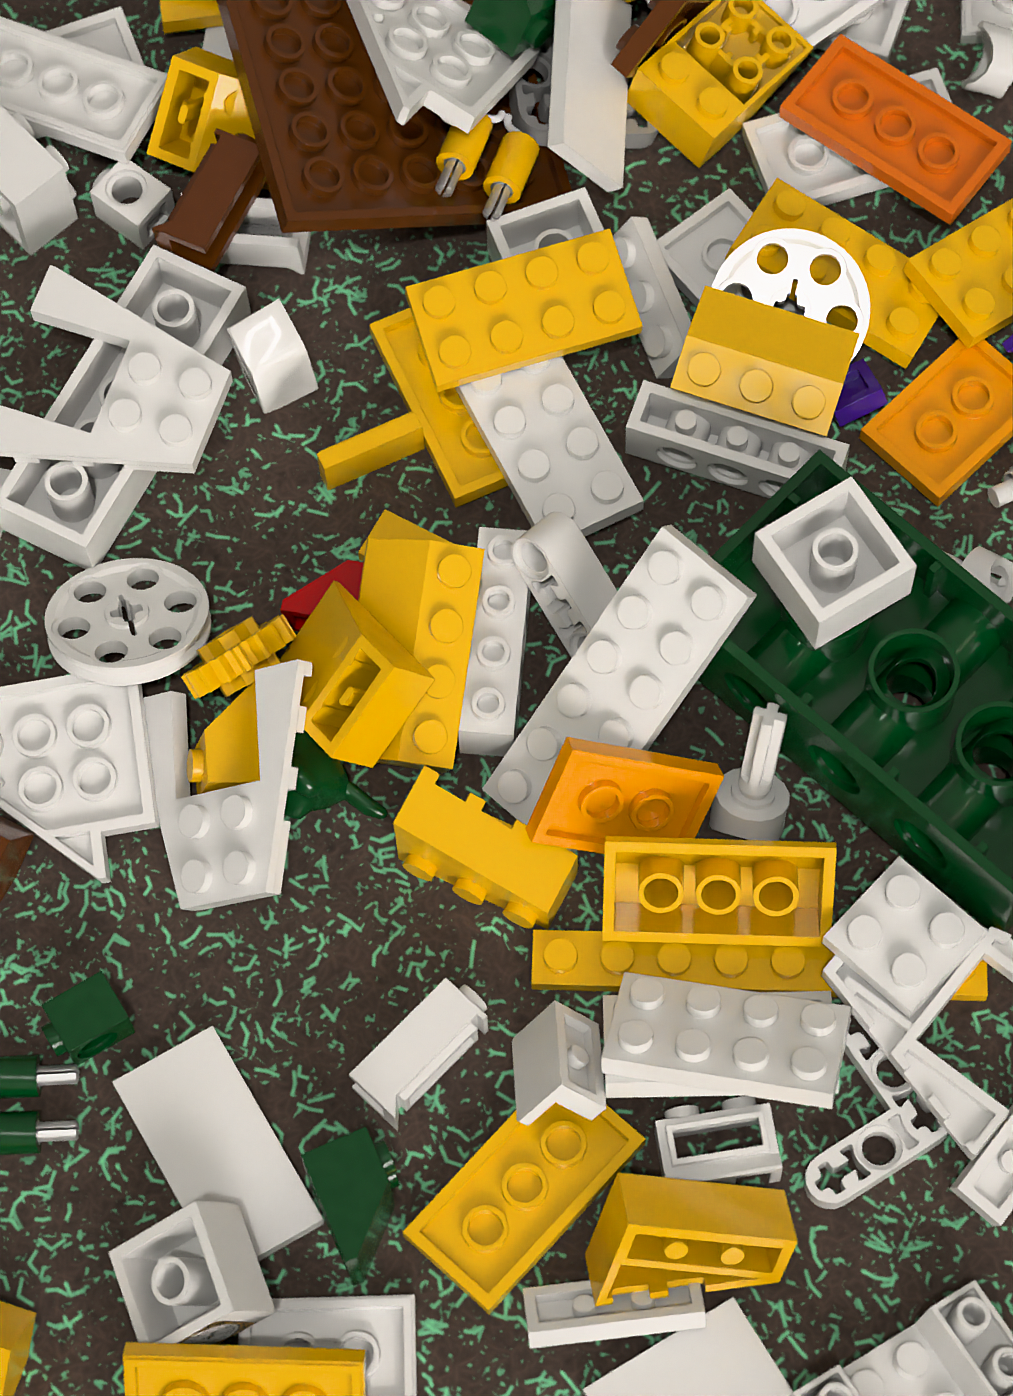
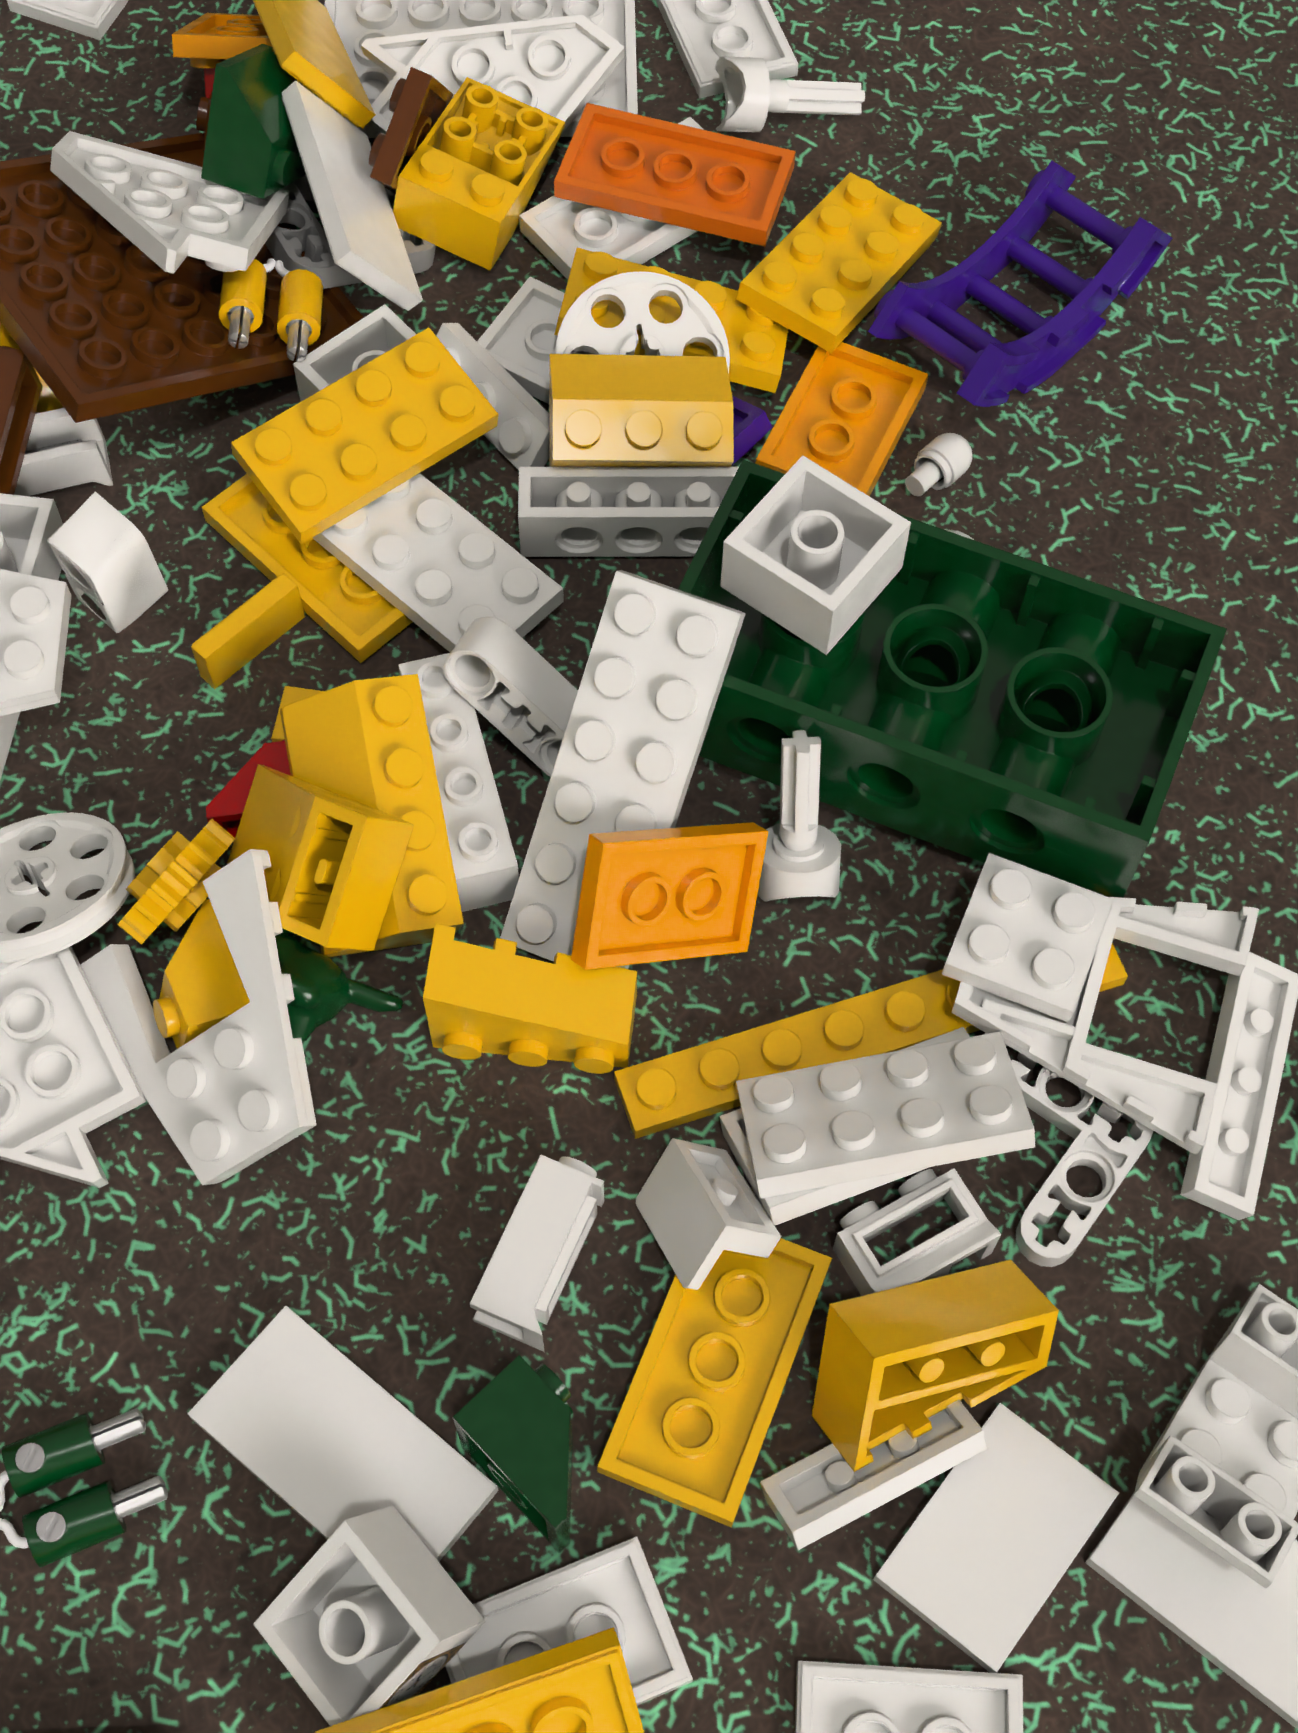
camera: 25 degrees left, 5 degrees down
(86, 1019) = (131, 1351): dark green brick -> none
(718, 891) = (805, 956): yellow slope -> none

